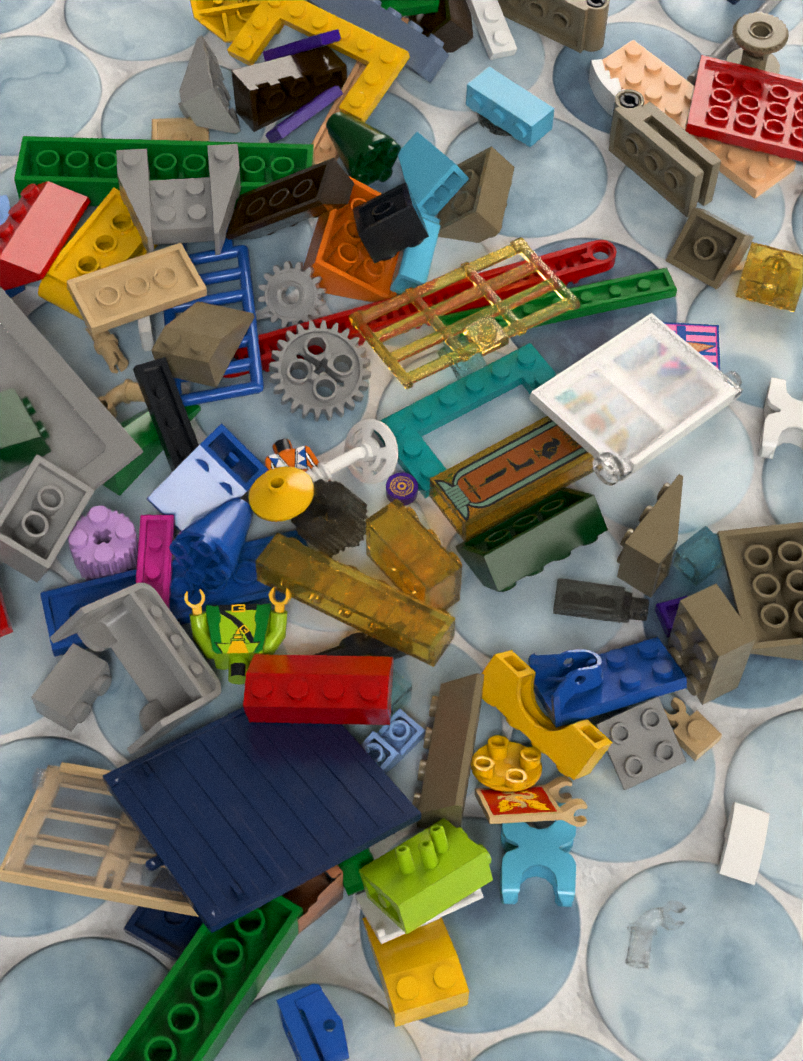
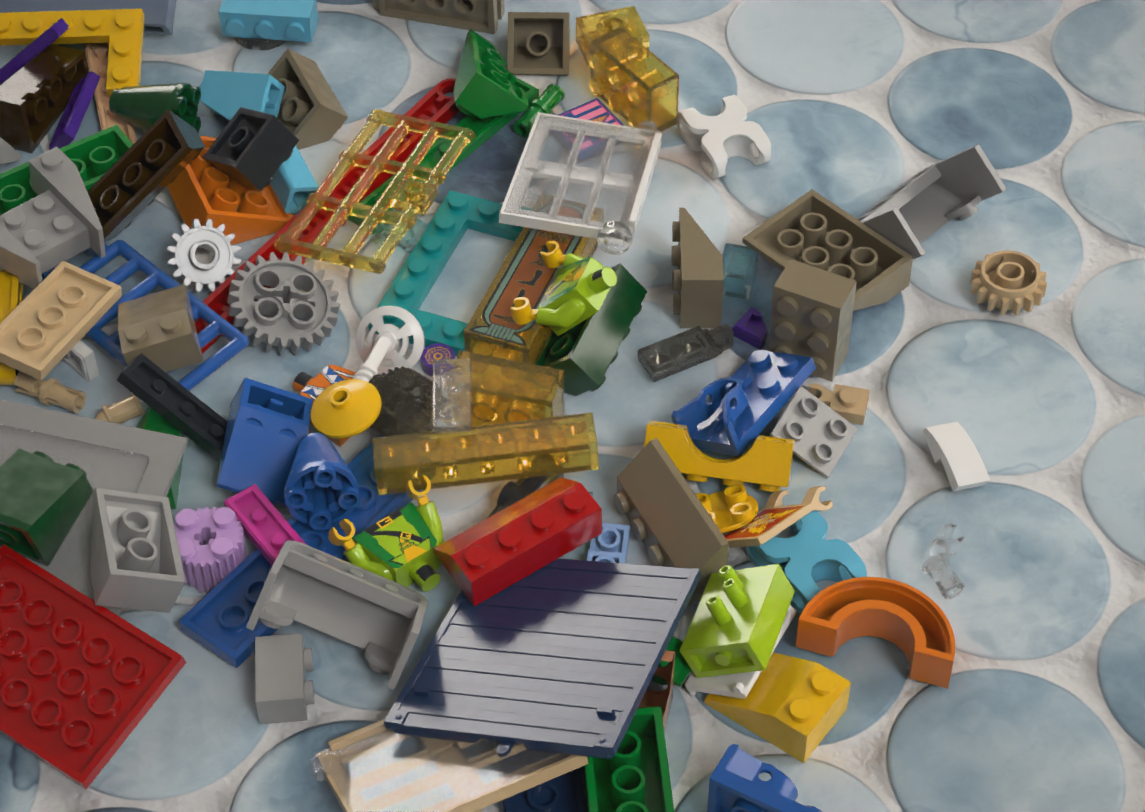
camera: 35 degrees left, 10 degrees down
(355, 535) = (452, 395): none -> clear plate
(533, 500) = (571, 296): none -> lime torso
(553, 938) = (886, 611): none -> orange brick
(635, 259) = (484, 83): none -> green wedge
(663, 308) = (544, 104): none -> green pin
(752, 328) = (633, 80): none -> clear yellow brick

